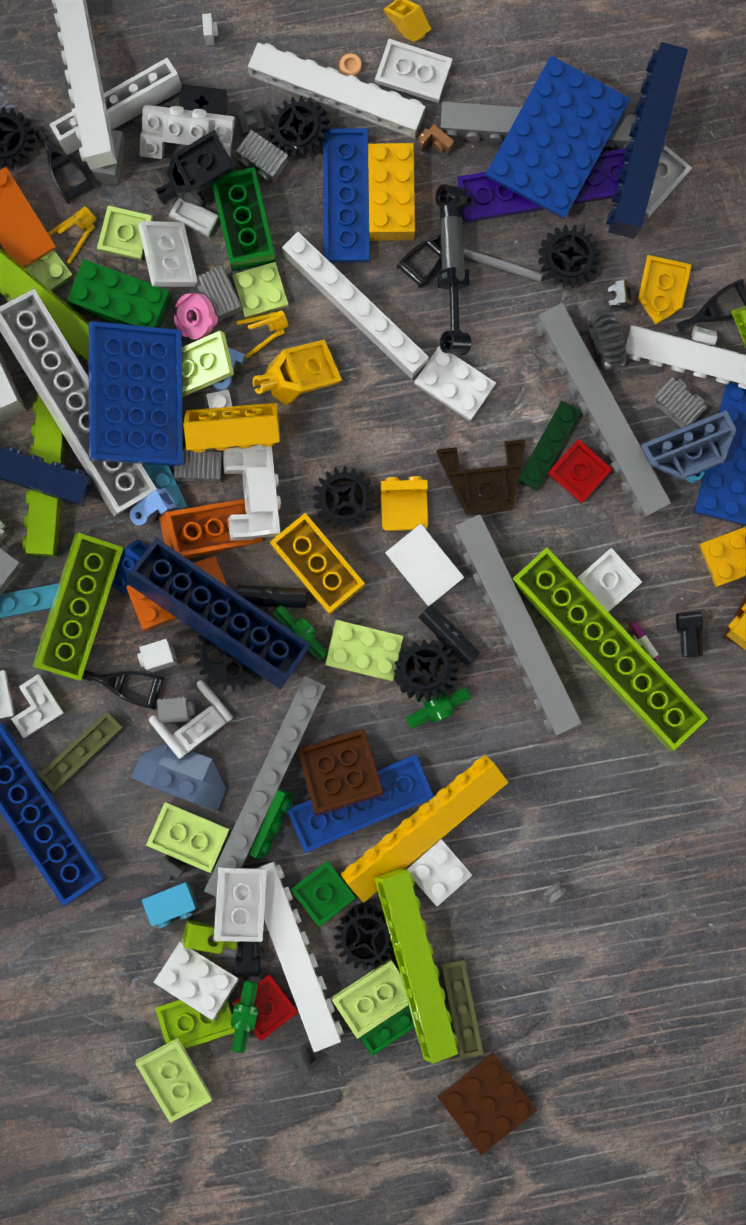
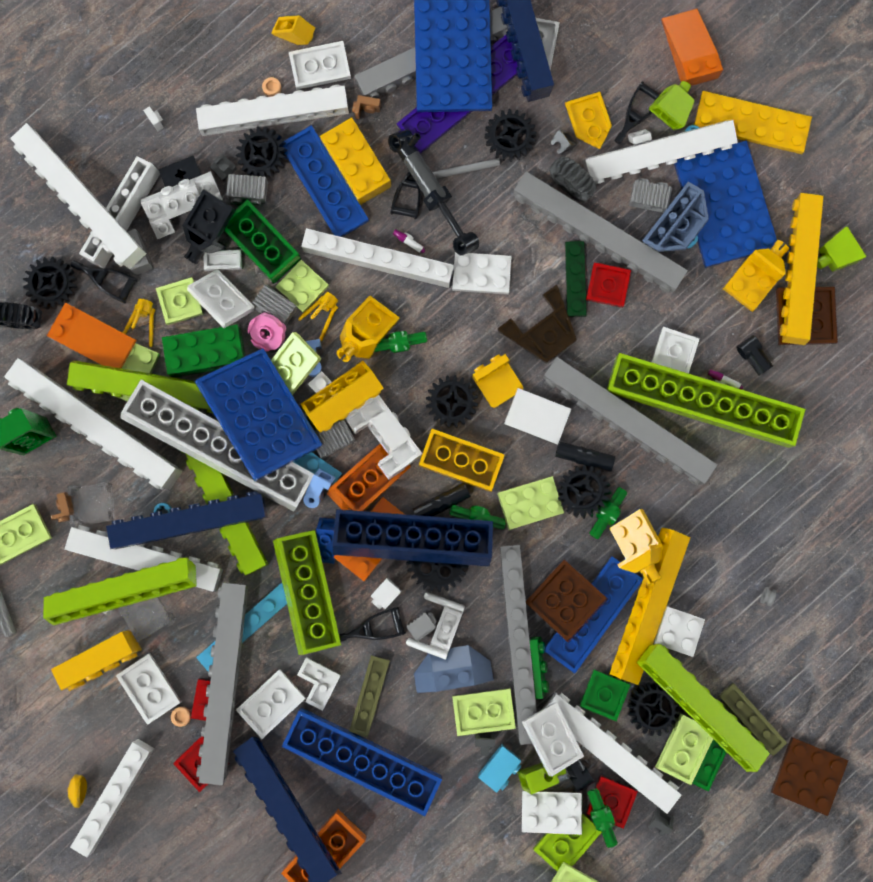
camera: 25 degrees left, 0 degrees up
(328, 405) = (401, 341): none -> green axle
(398, 305) = (408, 239): none -> piece
(449, 759) = (639, 545): none -> yellow plate

